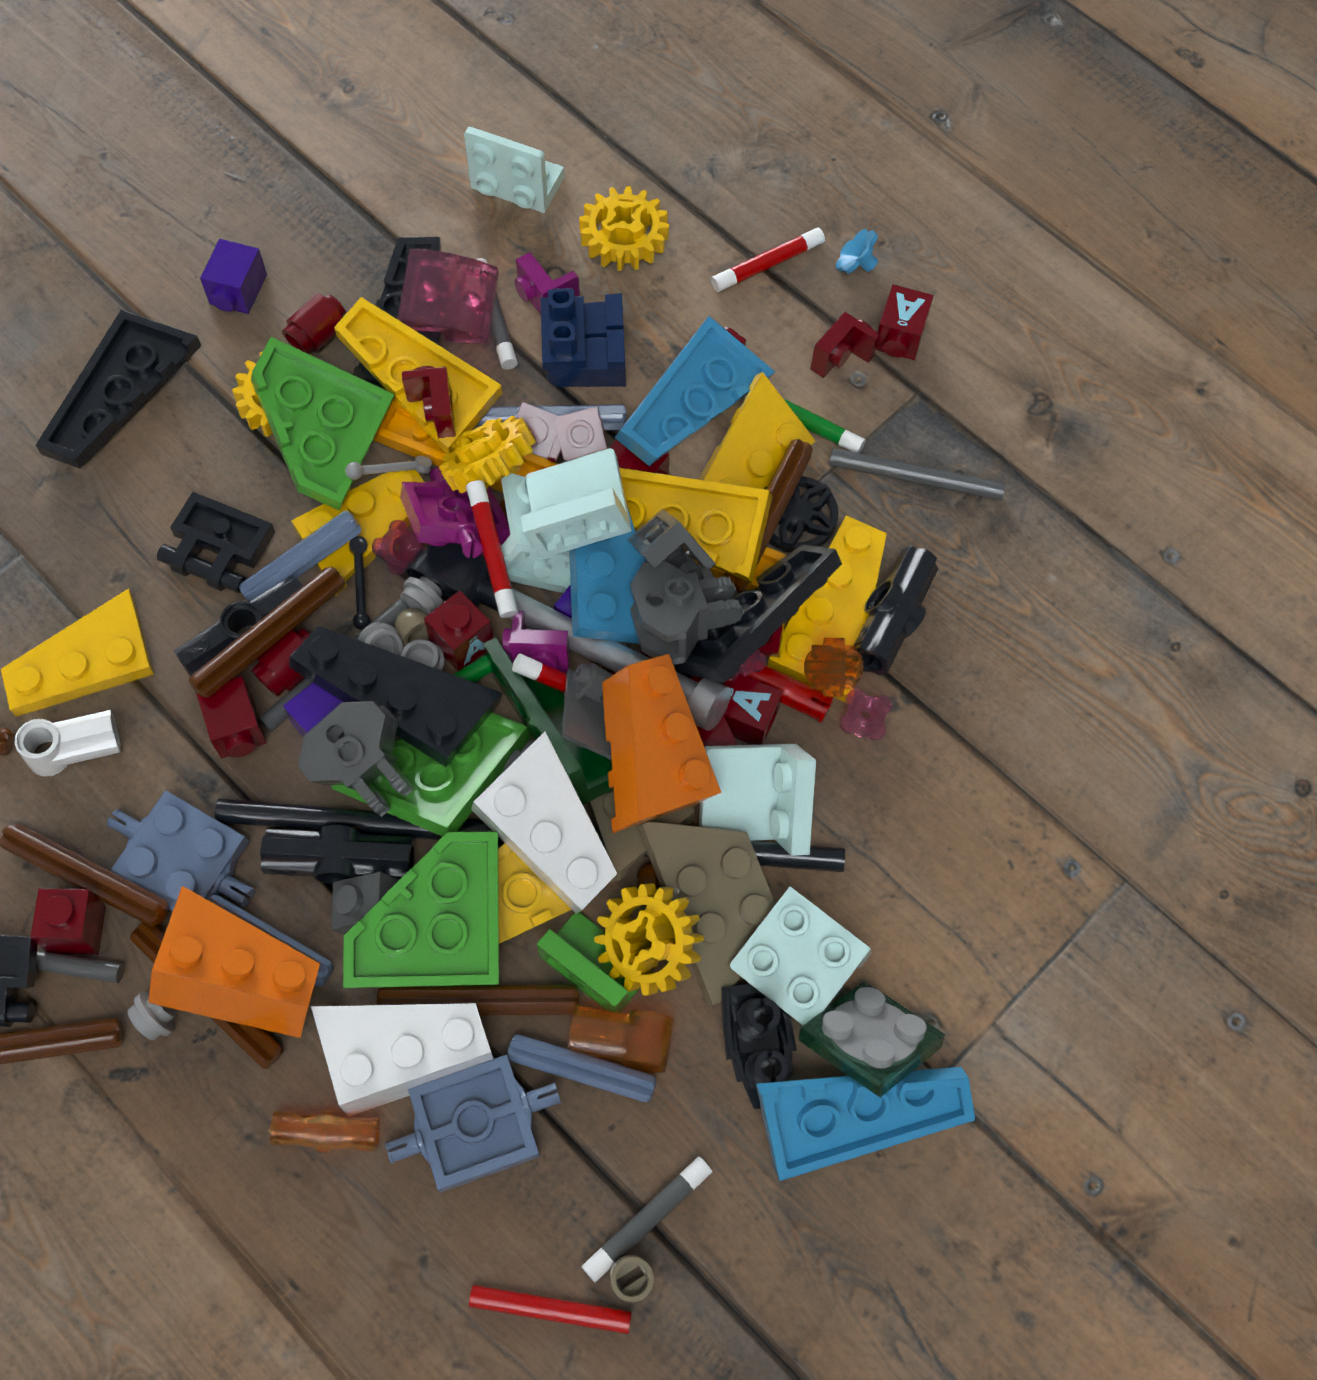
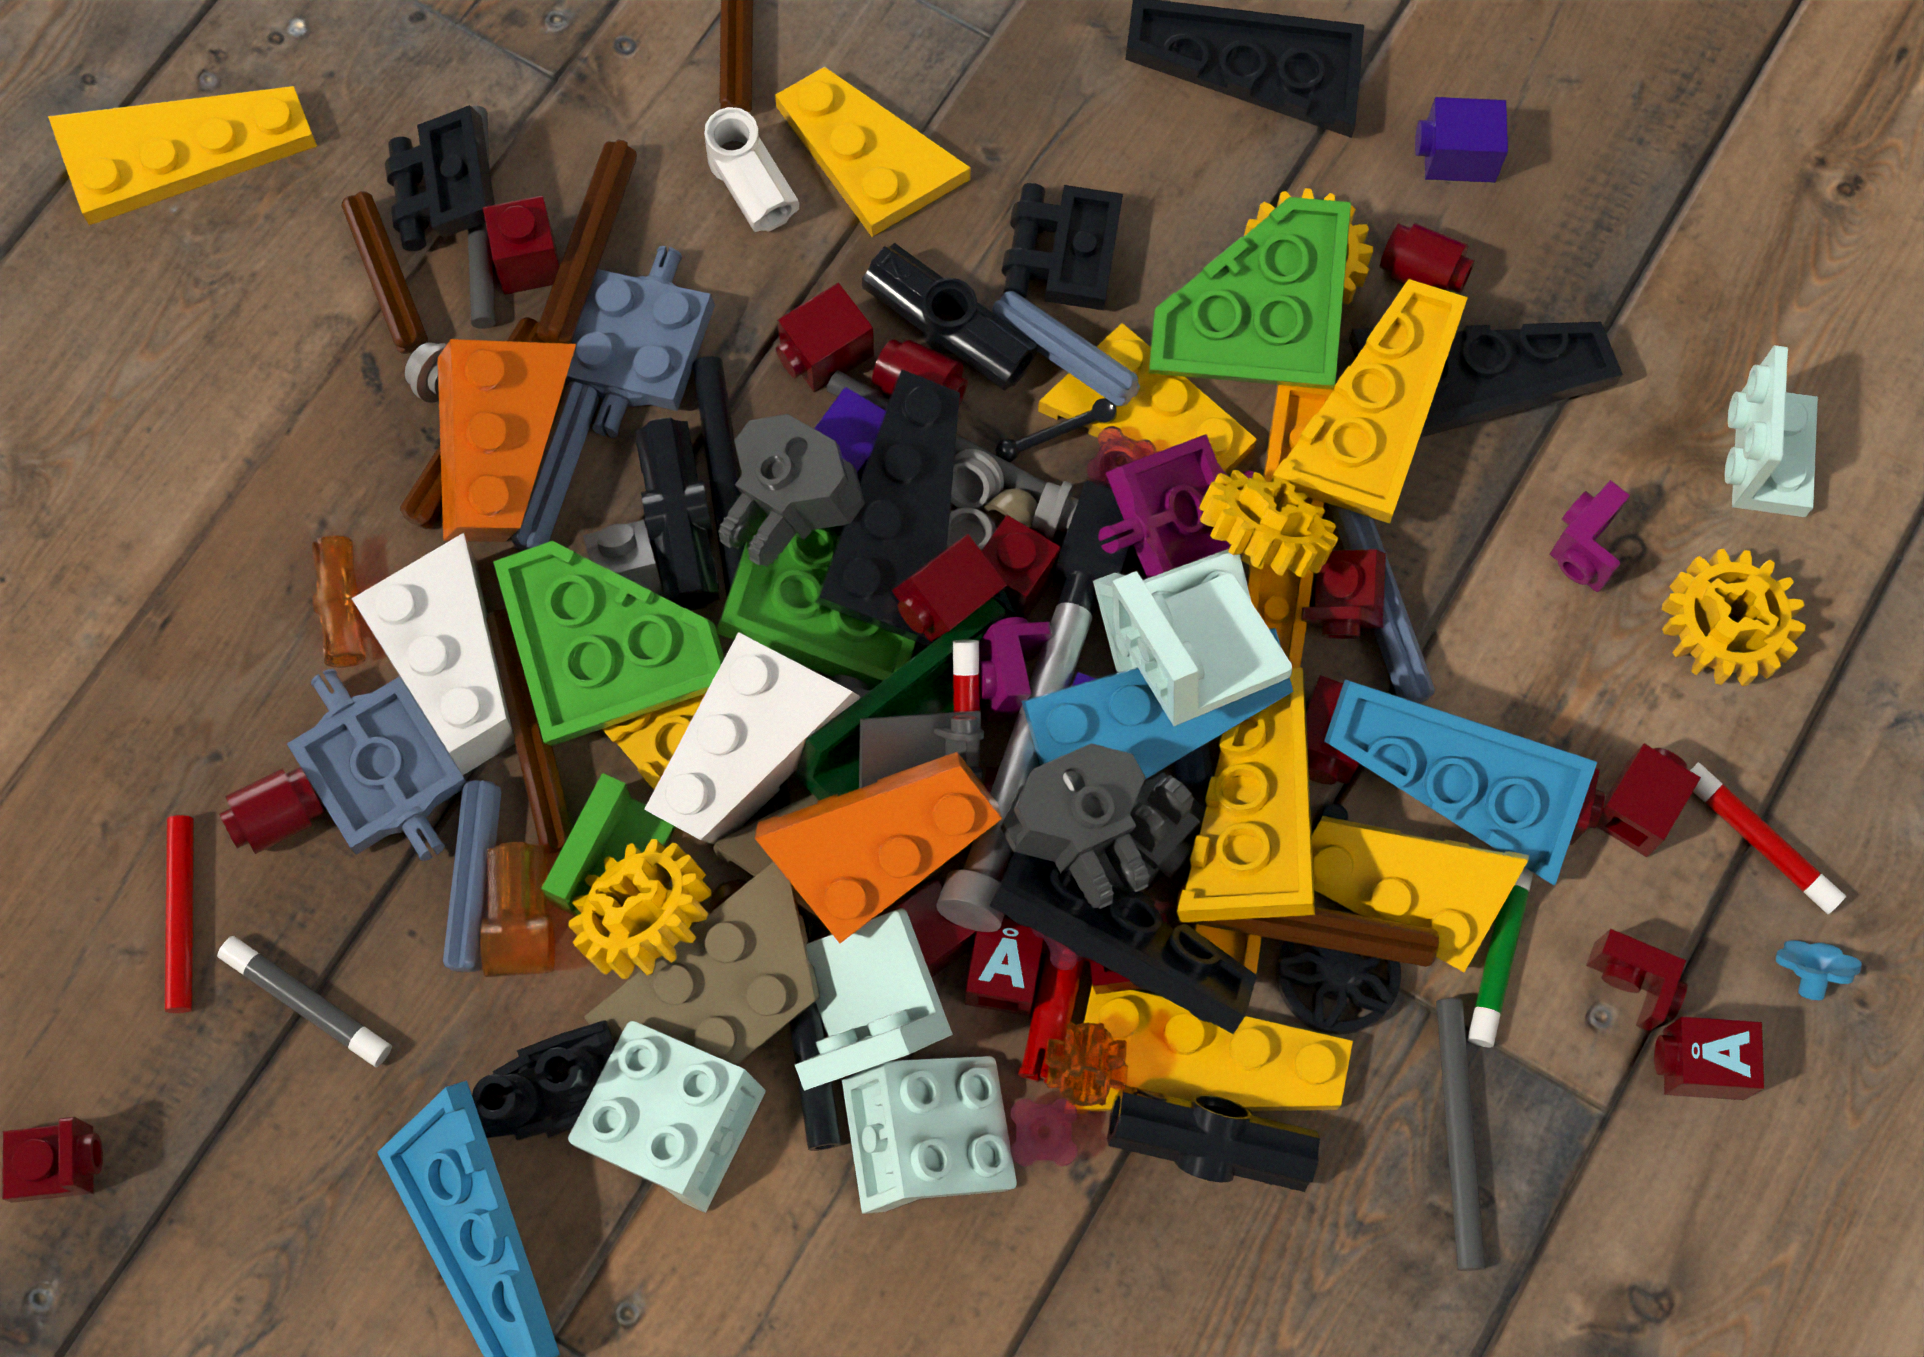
camera: 75 degrees right, 5 degrees up
(266, 632) = (939, 337): reddish brown axle -> none
(421, 464) = (1252, 454): light grey hinge -> none
(434, 389) = (1329, 440): dark red bracket -> none
(448, 295) = (1525, 412): clear pink slope -> none
(470, 667) = (947, 589): none -> dark red brick
(487, 1214) = (271, 810): none -> dark red brick
(492, 549) = (1119, 564): red bar -> none
(501, 335) = (1531, 483): bar -> none
(580, 433) = (1353, 644): bracket -> none
(583, 340) = (1519, 610): dark blue hips -> none
(636, 1288) = (216, 1005): dark tan hinge -> none
(662, 537) = (1185, 782): dark grey panel -> none
(731, 304) = (1647, 798): none -> dark red brick
(855, 790) = (928, 1131): none -> light aqua bracket
(871, 1038) = (569, 1225): piece -> none

